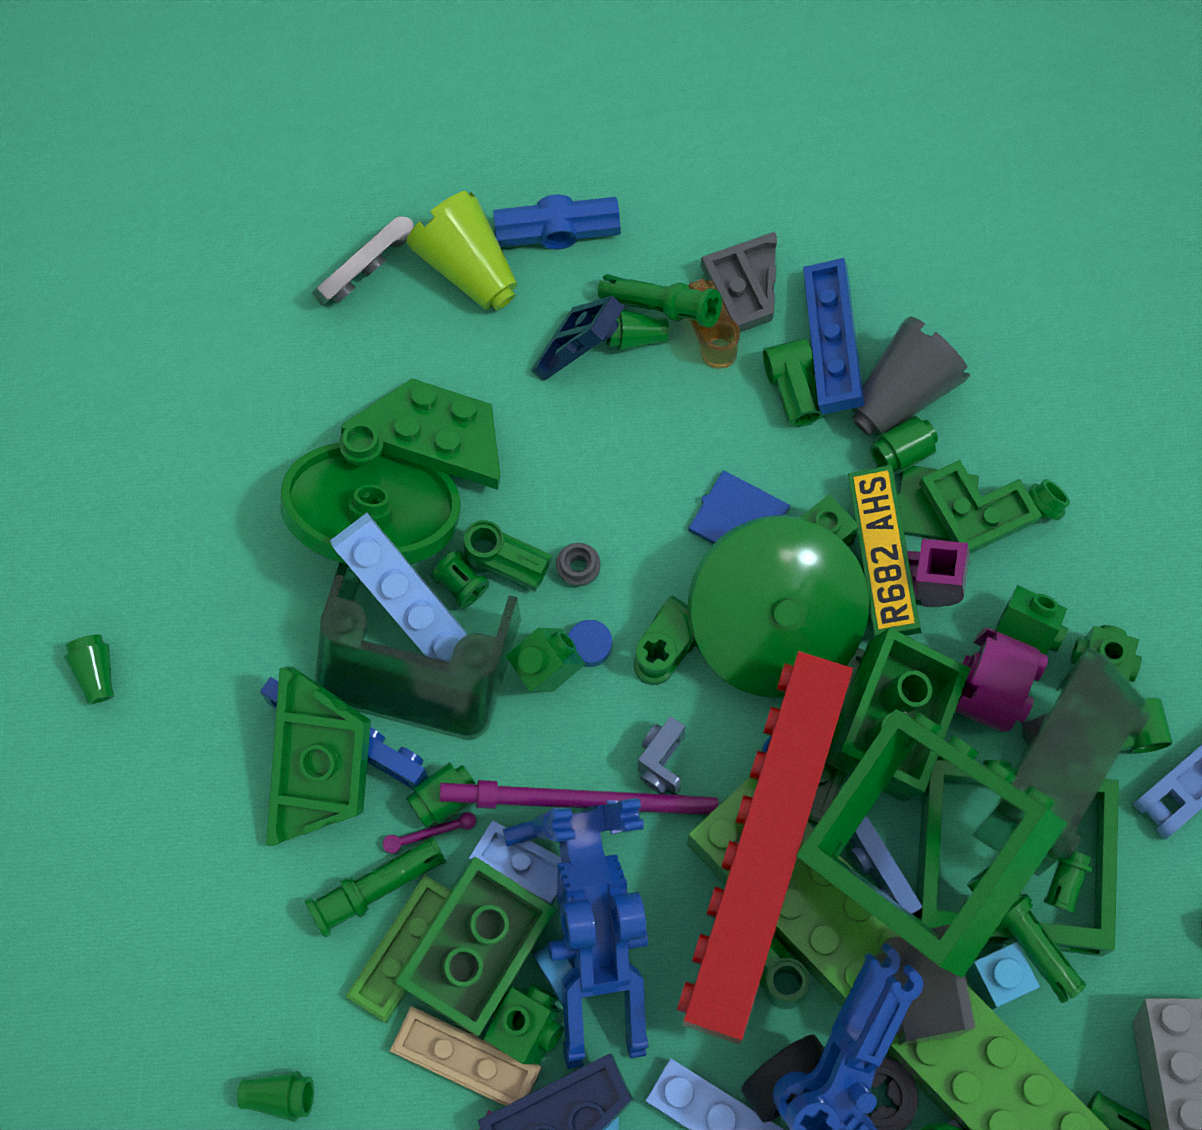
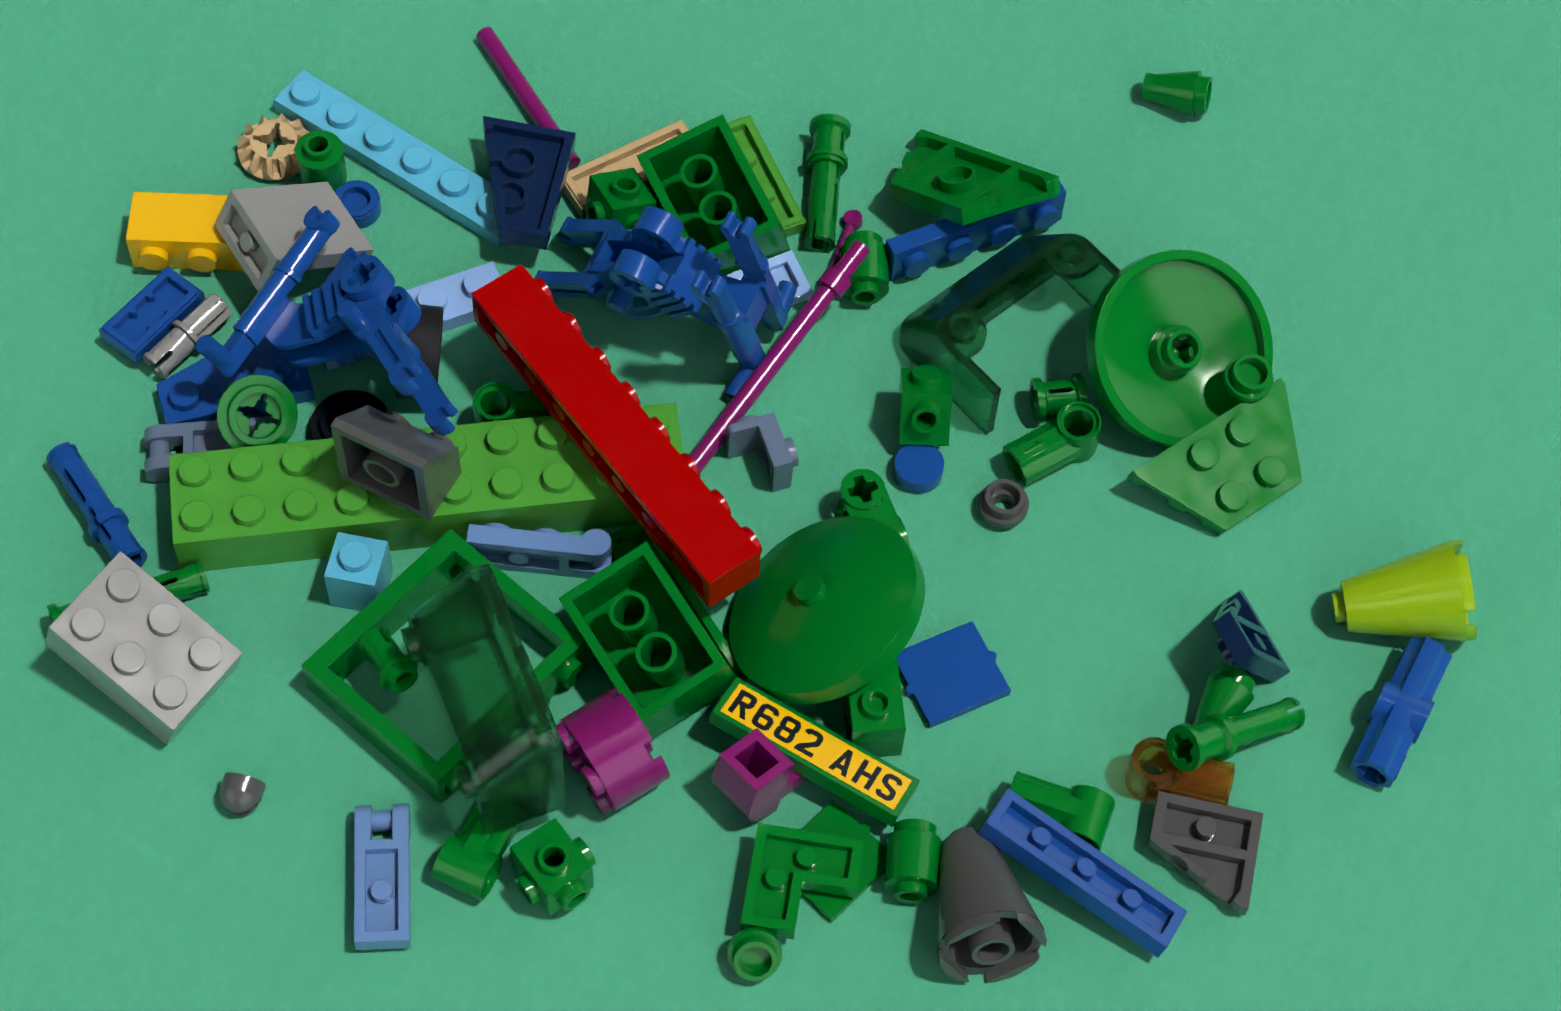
camera: 120 degrees right, 10 degrees down
(279, 1095) = (705, 33): green cone -> none
(365, 259) = (1466, 511): plate -> none
(399, 588) = (1064, 308): light blue plate -> none
(998, 886) = (424, 429): green window -> none
(1033, 620) = (641, 830): green brick -> none
(1038, 946) = (399, 593): green pin -> none

